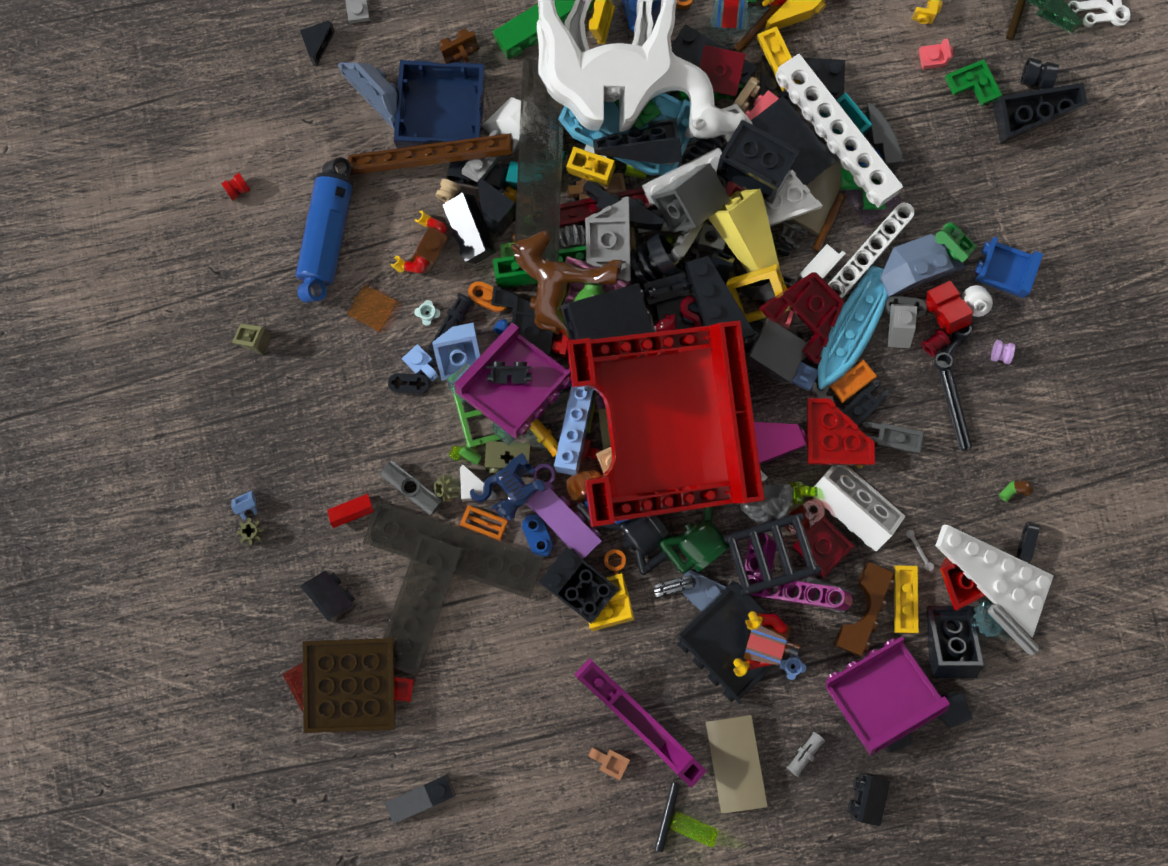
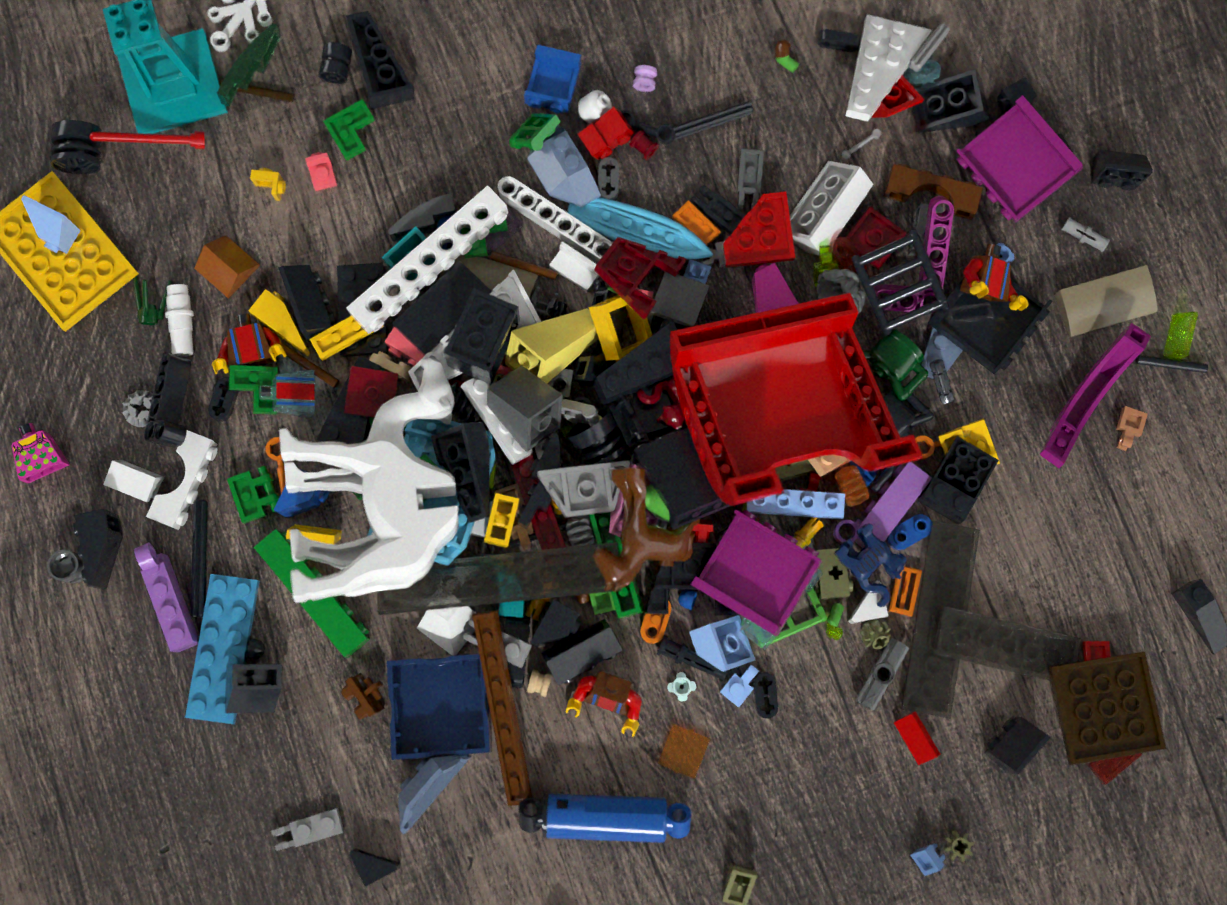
camera: 100 degrees left, 0 degrees up
(500, 373) = (747, 587): black hinge -> none
(813, 28) = (307, 299): none -> black slope
(902, 325) = (630, 178): light grey slope -> none
(906, 599) = (915, 152): yellow plate -> none

